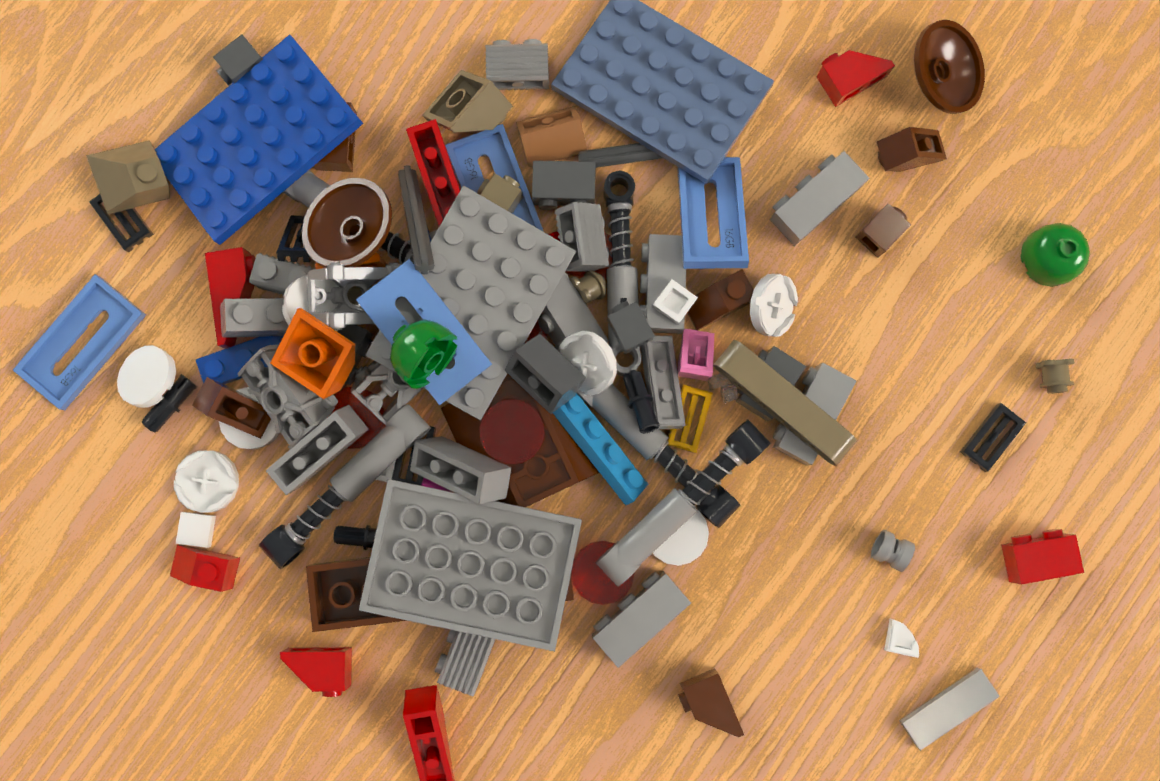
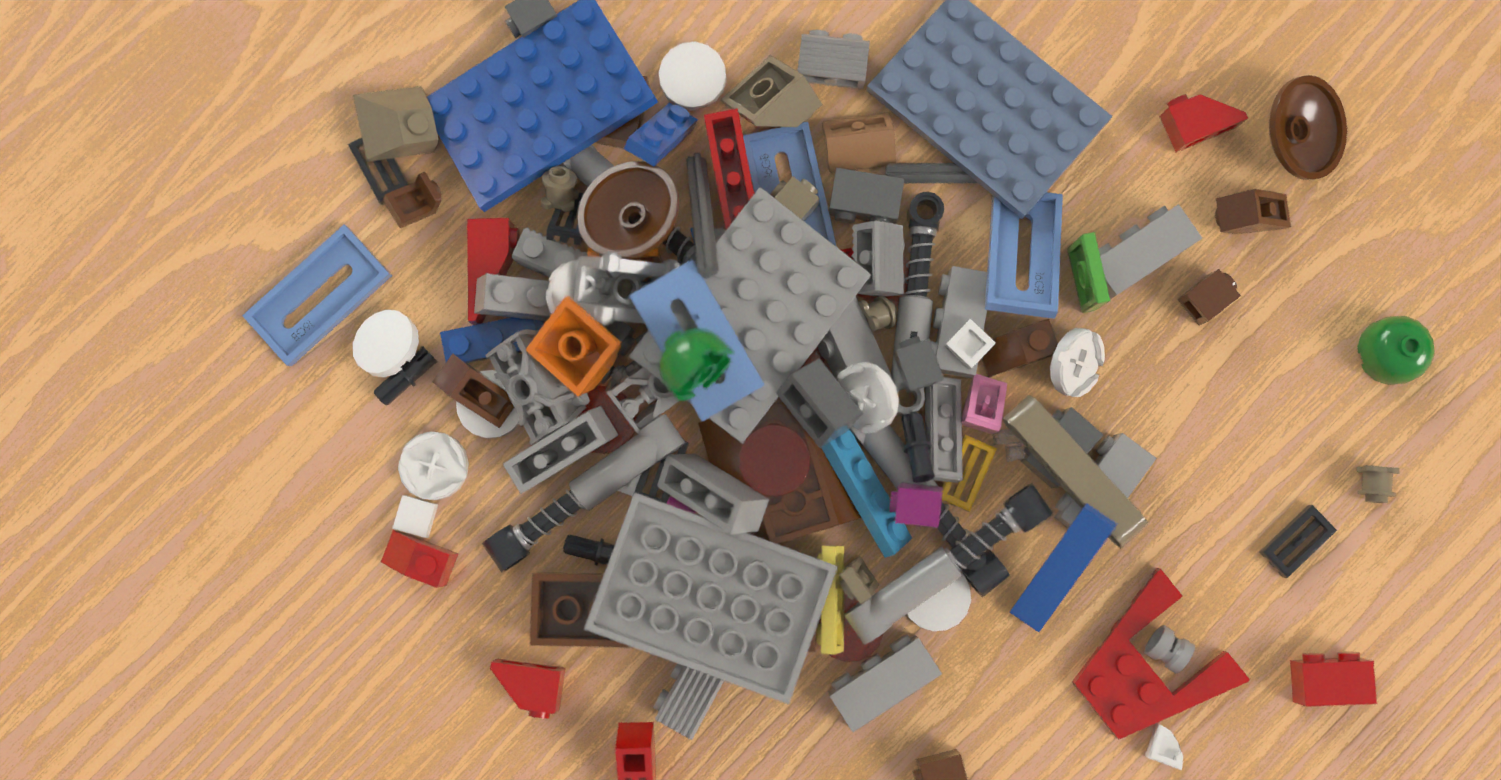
camera: 15 degrees right, 0 degrees up
(155, 244) = (414, 200): none -> reddish brown bracket
(285, 214) = (559, 189): none -> dark tan brick
(369, 151) = (661, 134): none -> blue plate
(393, 97) = (692, 75): none -> white tile
(585, 579) = (831, 630): none -> light yellow plate
(604, 530) = (858, 581): none -> dark tan plate
(647, 453) = (917, 504): none -> magenta brick
(772, 223) = (1088, 273): none -> bright green tile
(786, 490) = (1063, 567): none -> blue tile
(860, 592) = (1124, 685): none -> red wing

